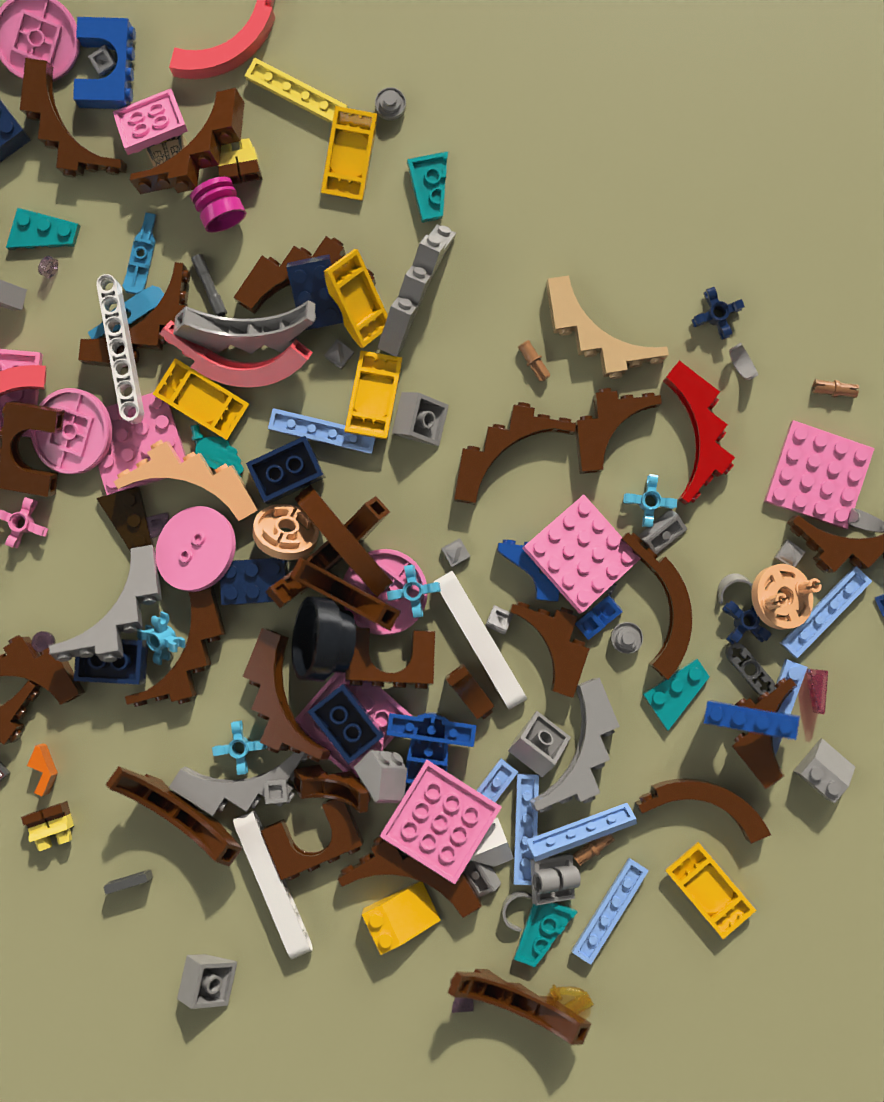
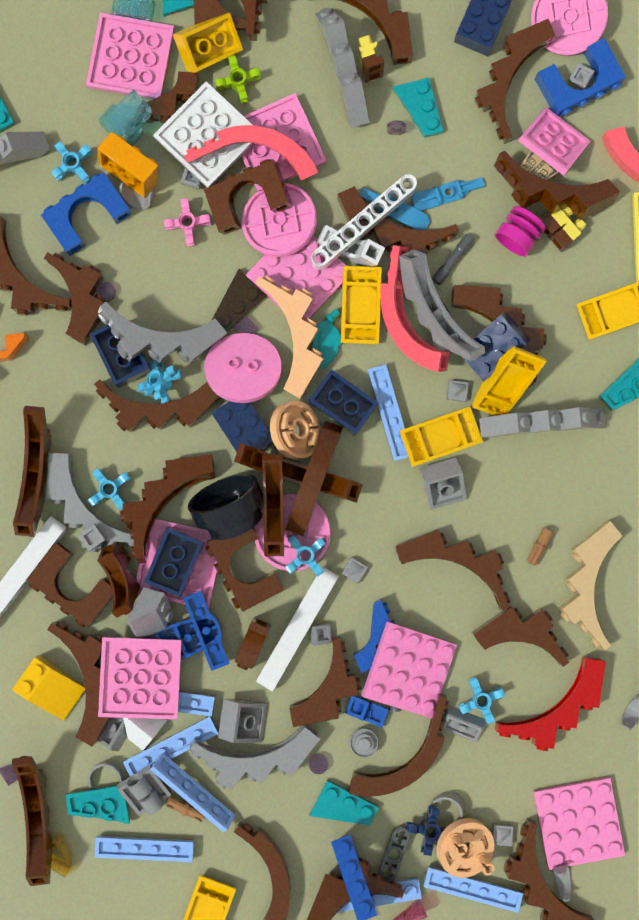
camera: 50 degrees right, 0 degrees up
(150, 369) = (362, 252): none -> white arch
(623, 693) = (318, 764): none -> clear purple tile

